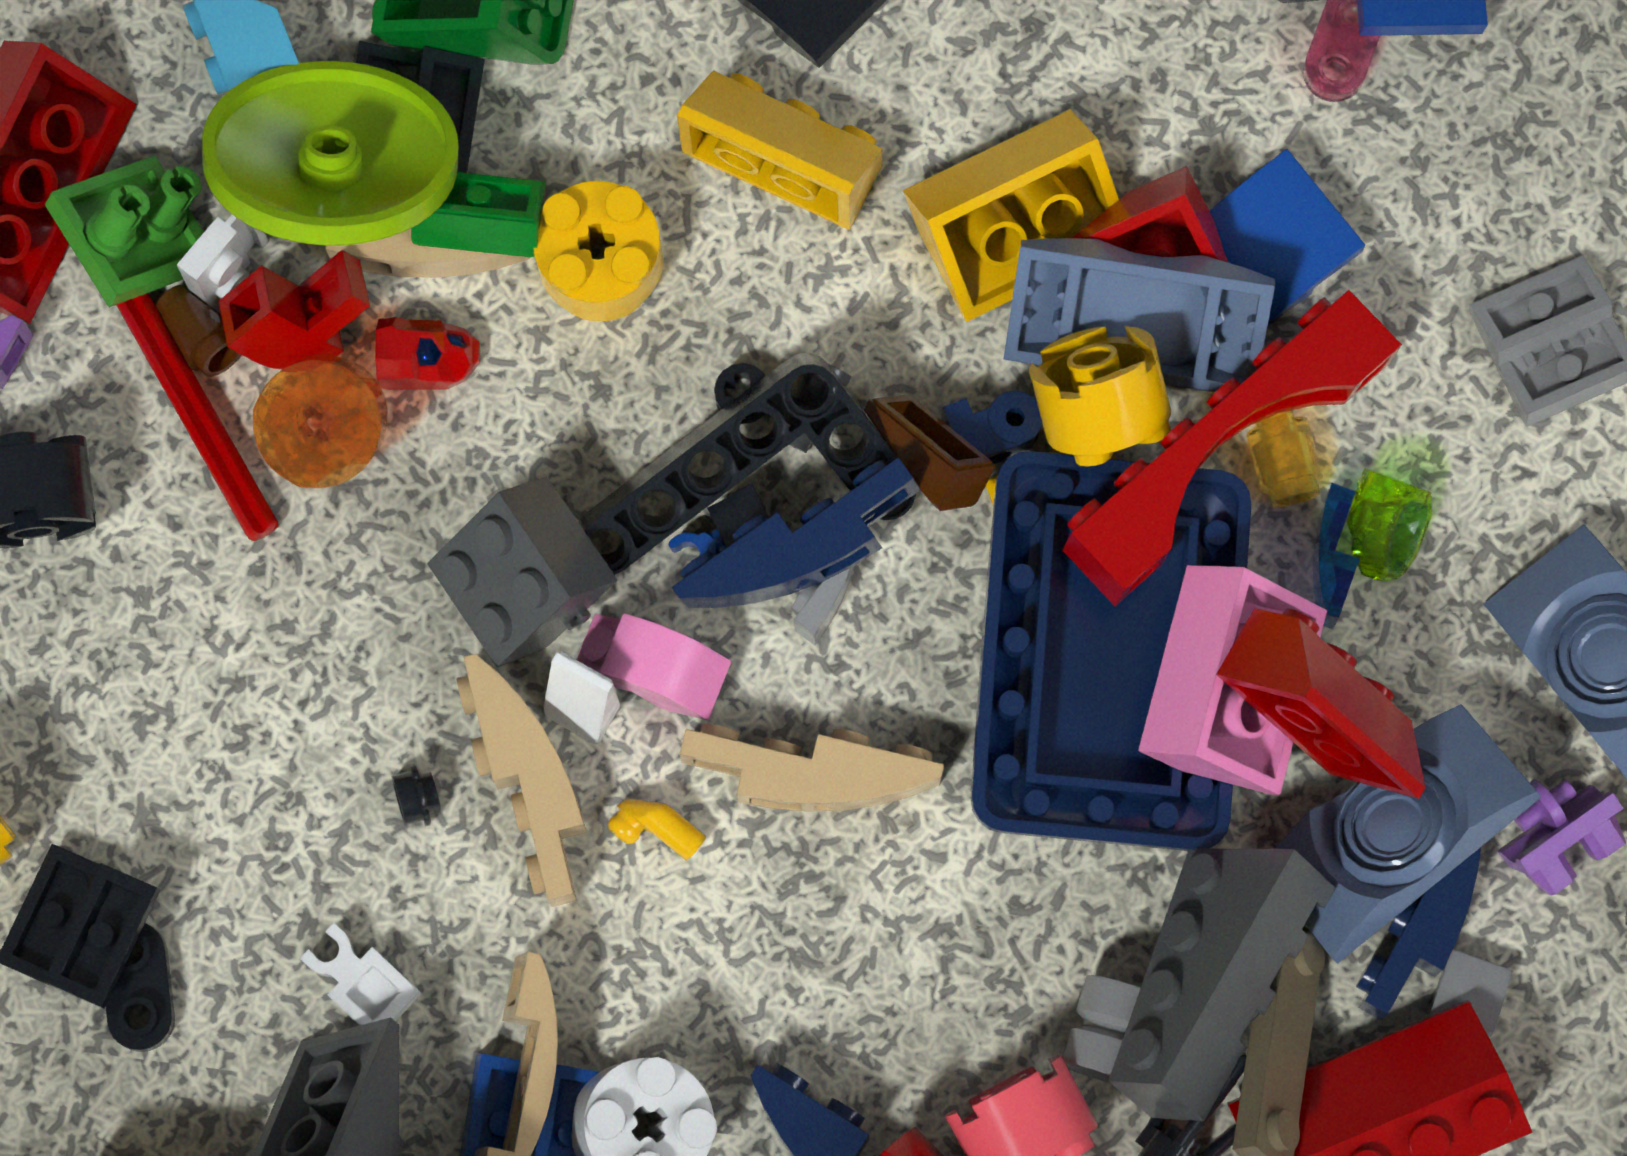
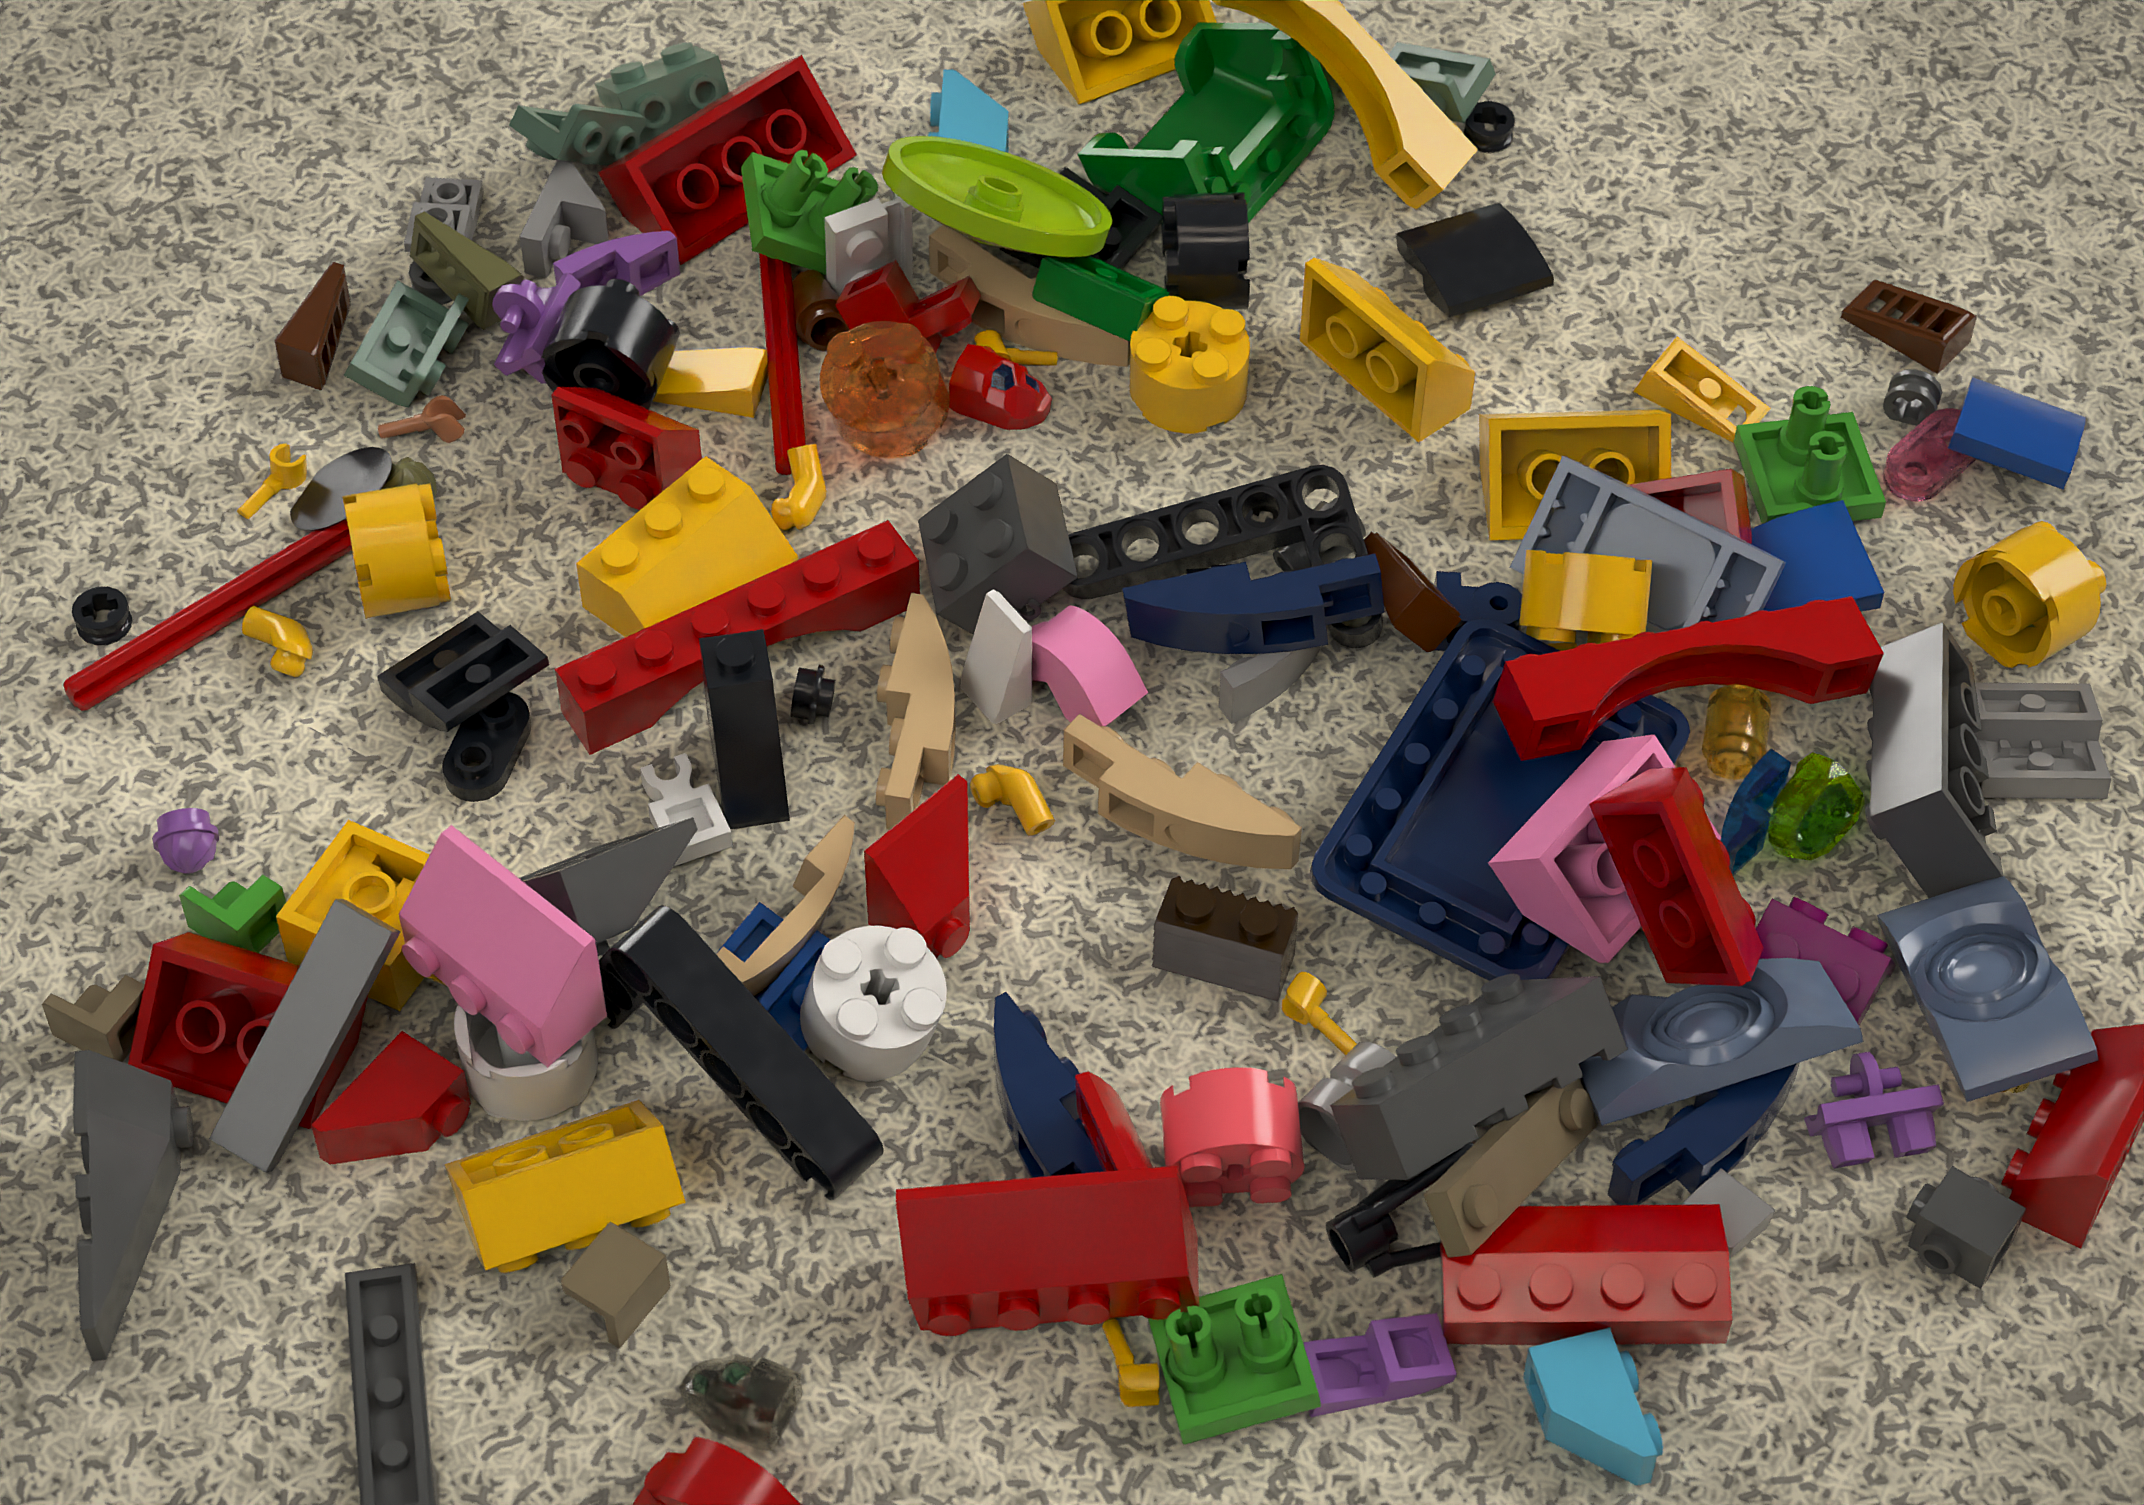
camera: 20 degrees right, 25 degrees down
(99, 594) = (620, 444): none -> red slope
(140, 460) = (716, 380): none -> yellow slope
(226, 703) = (682, 551): none -> yellow slope
(285, 808) = (648, 672): none -> red arch
(297, 559) = (807, 493): none -> yellow arm
(386, 892) = (744, 728): none -> black slope
(393, 303) = (1023, 357): none -> yellow hand
(558, 107) = (1207, 248): none -> black brick
(630, 974) = (922, 872): none -> red slope
(922, 907) = (1224, 938): none -> dark brown brick
(1013, 932) = (1302, 1005): none -> yellow hand
(1095, 54) = (1698, 390): none -> yellow slope
(1236, 112) = (1809, 461): none -> bright green plate
(1441, 673) = (1852, 961): none -> magenta bracket
(1475, 427) = (1930, 763): none -> dark grey wedge
(1501, 193) = (2028, 581): none -> yellow brick

